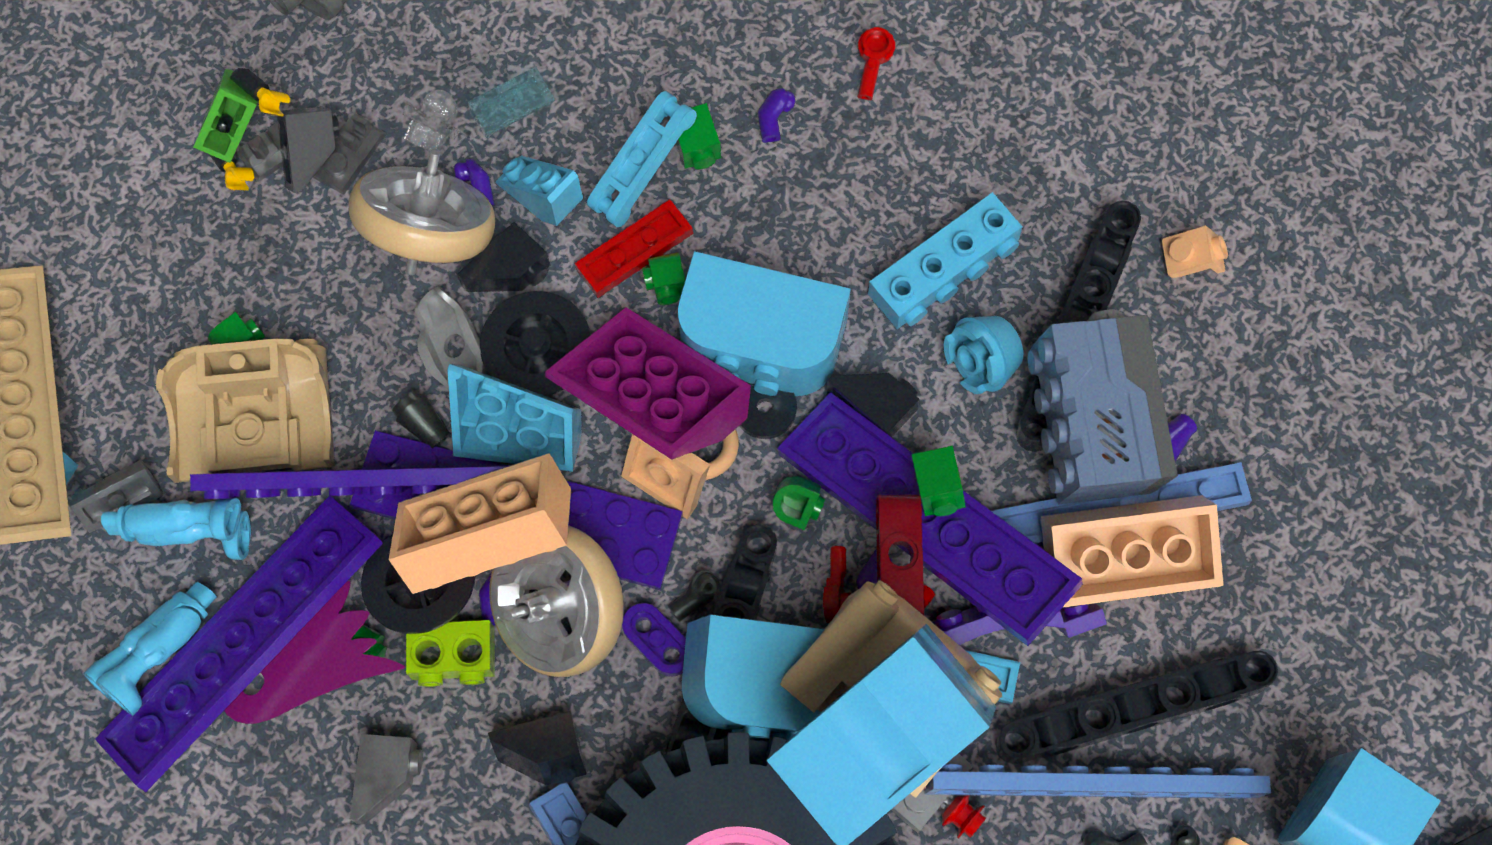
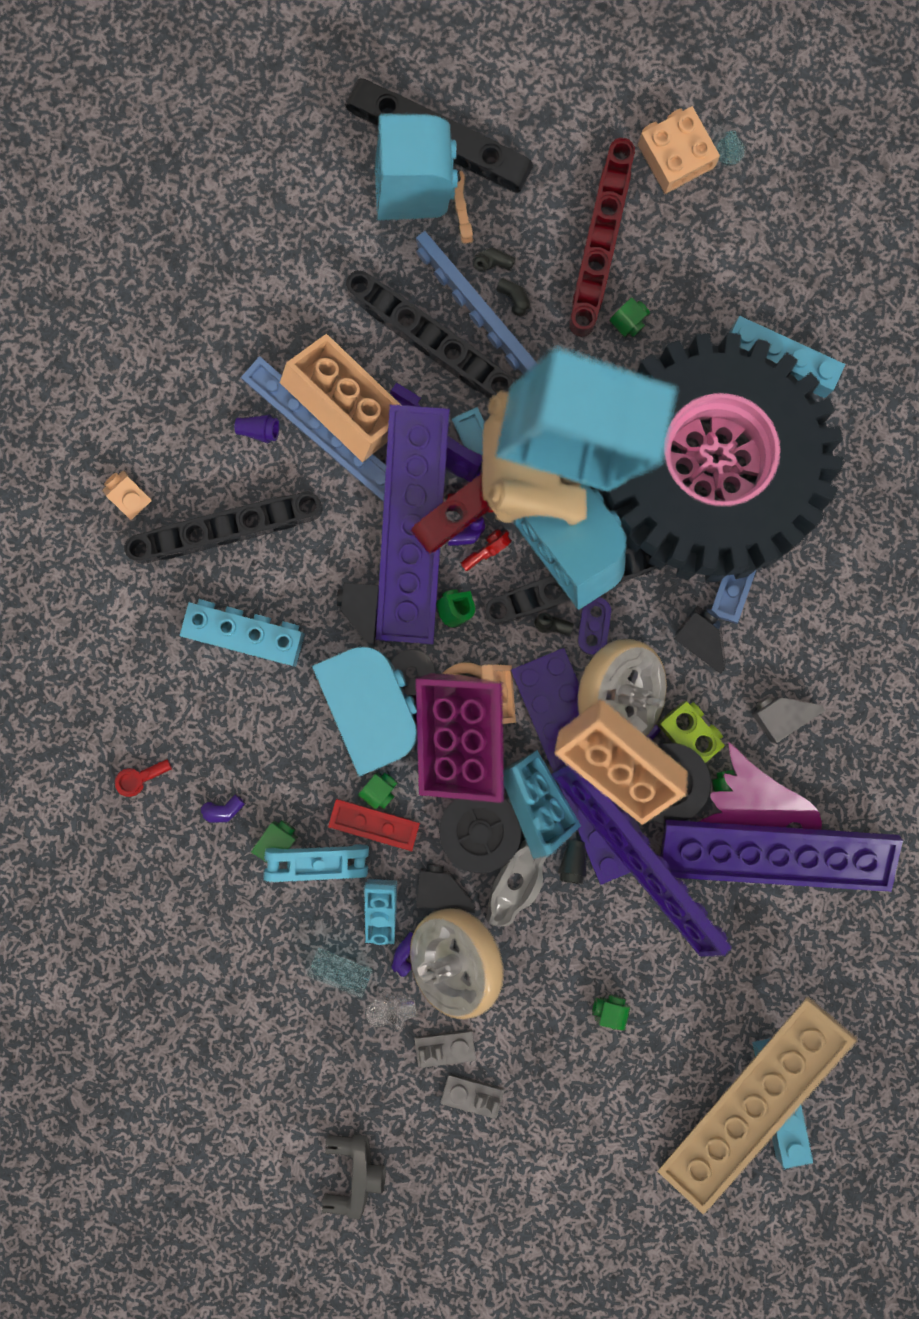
camera: 130 degrees left, 15 degrees up
(126, 487) = (755, 1002): flat silver plate -> none
(149, 646) = (821, 904): medium azure piece -> none
(183, 524) = (743, 950): medium azure piece -> none
(228, 118) = (483, 1137): torso -> none
(247, 407) = (648, 968): tan piece -> none
(305, 143) = (462, 1076): black slope -> none
(939, 481) = (391, 527): green brick -> none
(984, 352) = (285, 566): medium azure cone -> none
(1102, 408) = (275, 467): sand blue piece -> none

